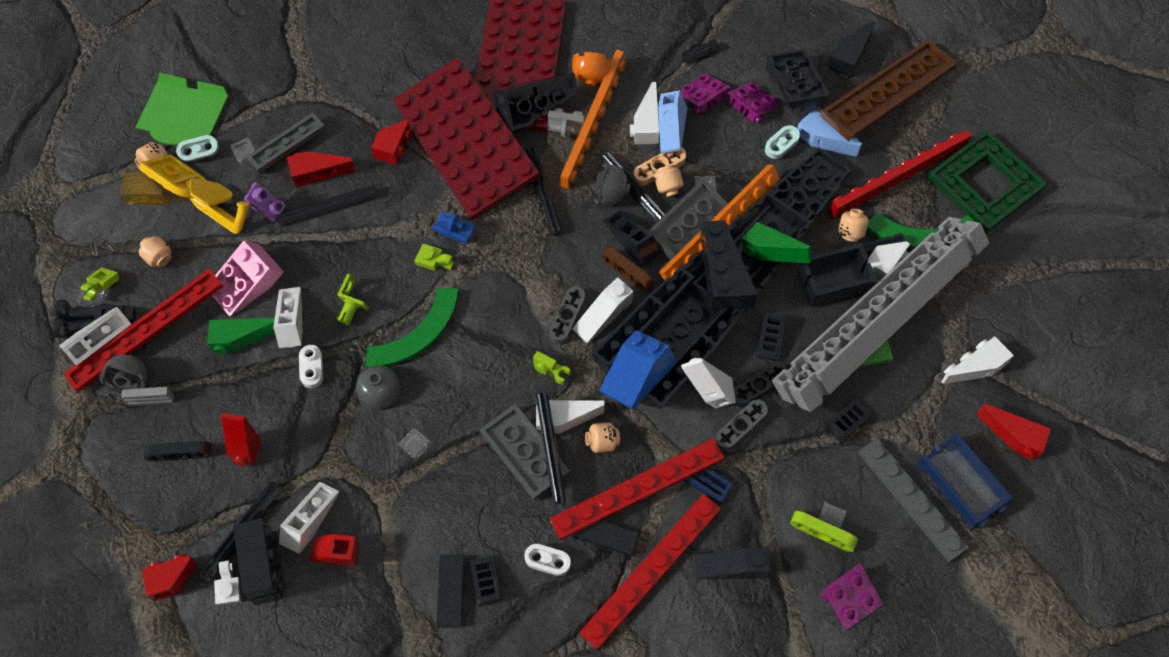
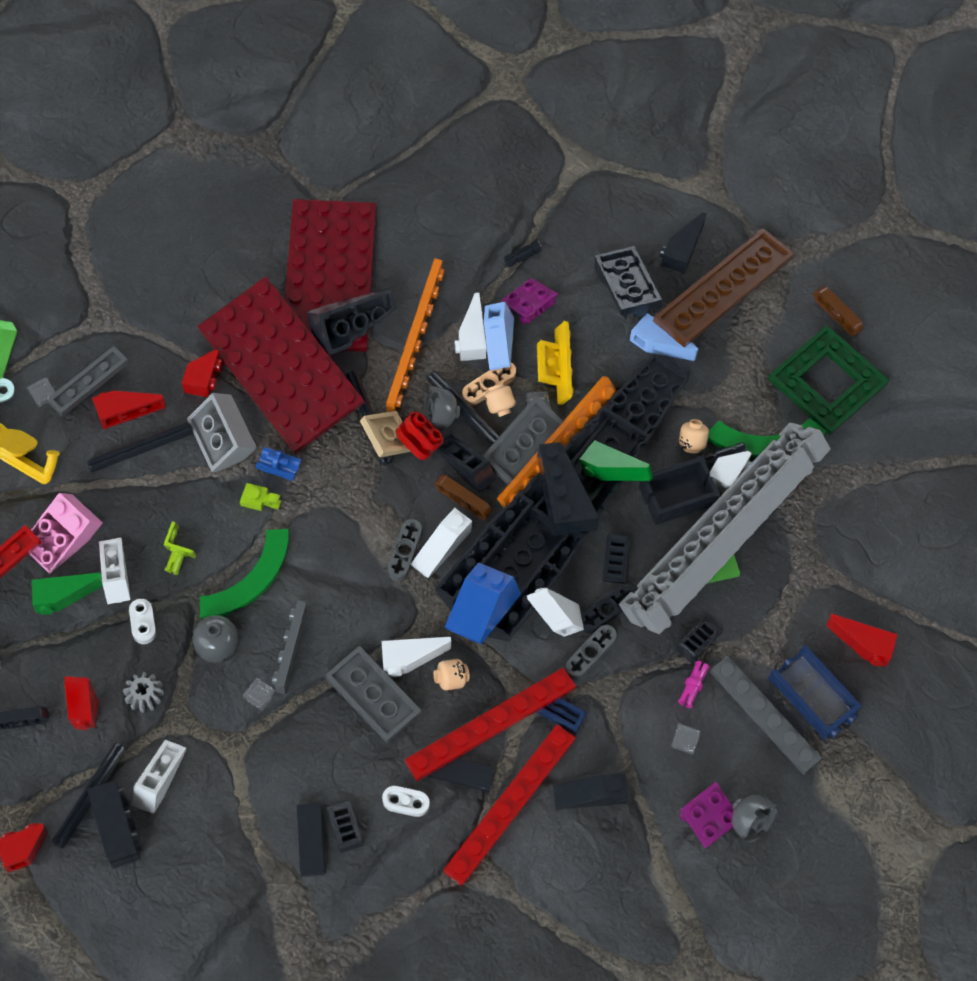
camera: 10 degrees left, 0 degrees up
(228, 588) = (84, 853): white plate -> none
(264, 202) = (74, 449): medium lavender hips -> none
(294, 434) = (134, 696): none -> light grey gear
(335, 550) = (189, 807): red slope -> none
(403, 195) = (221, 432): none -> light grey slope
(445, 408) = (292, 638): none -> dark grey plate
(547, 365) = (388, 603): lime plate -> none
(550, 448) = (400, 688): black axle -> none
(559, 205) = (382, 433): none -> tan plate
(565, 122) = (385, 341): light grey hips -> none
(589, 208) = (419, 435): none -> red brick
(590, 68) = (408, 281): orange cylinder -> none
(724, 150) = (555, 363): none -> yellow bracket
(752, 101) = (583, 305): magenta hinge -> none
(780, 142) = (614, 351): light aqua plate -> none
(824, 531) = (679, 752): lime beam -> none
(842, 464) = (693, 684): none -> dark pink pin
(895, 176) = (733, 381): red plate -> none
(896, 601) = (753, 815): none -> dark grey cylinder
(983, 363) = (830, 572): white slope -> none
(1004, 124) = (838, 311): none -> reddish brown beam

